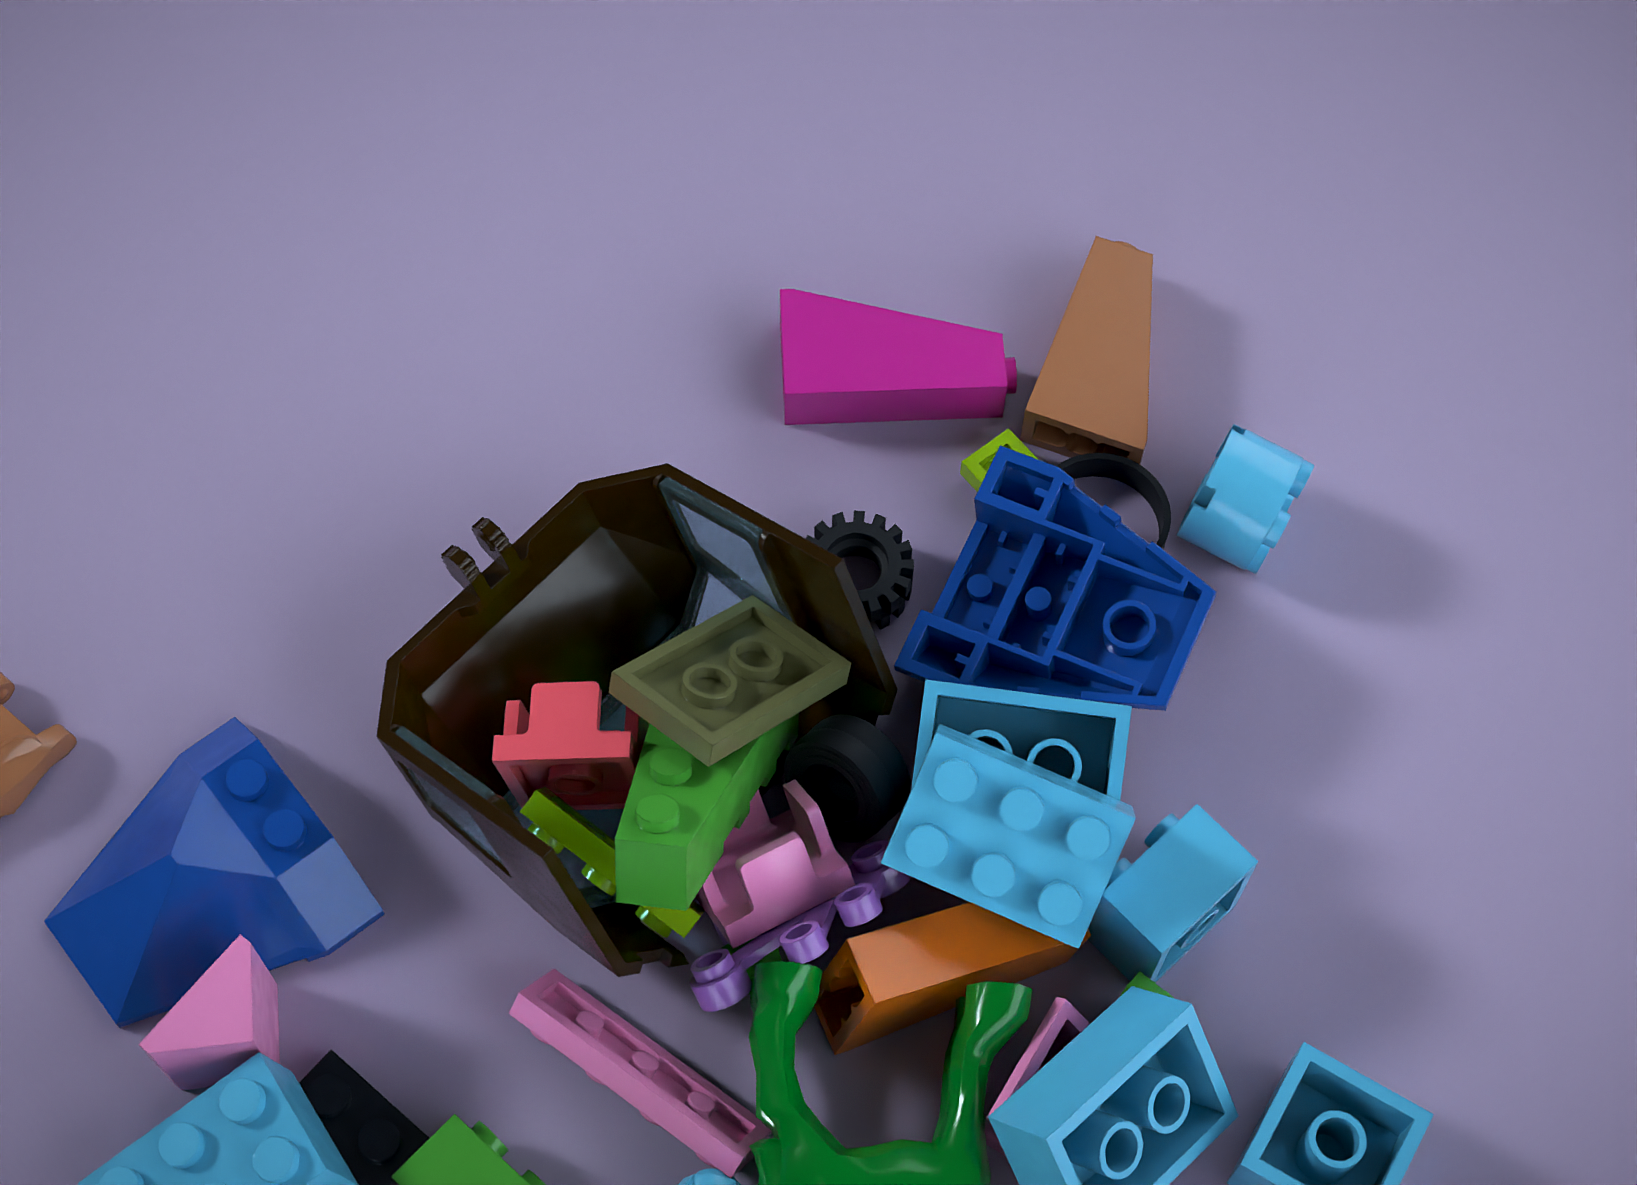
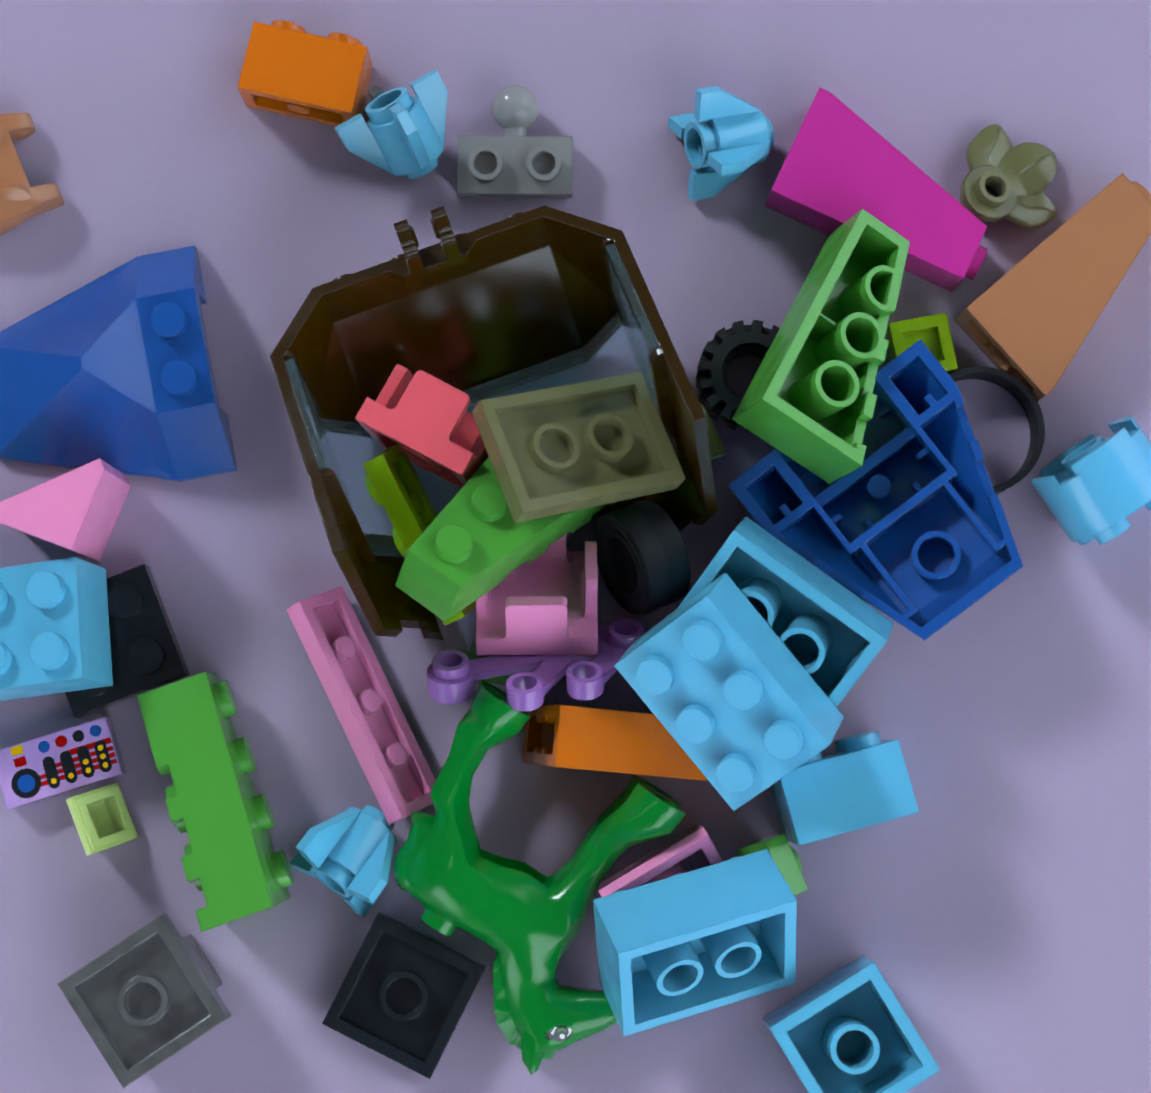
camera: 25 degrees right, 20 degrees up
(274, 506) = (305, 73): none -> orange brick
(395, 508) = (402, 130): none -> medium azure brick
(520, 489) = (514, 162): none -> light grey plate
(714, 378) = (721, 140): none -> medium azure brick
(921, 512) = (825, 358): none -> bright green wedge
(998, 296) = (1013, 175): none -> olive plate

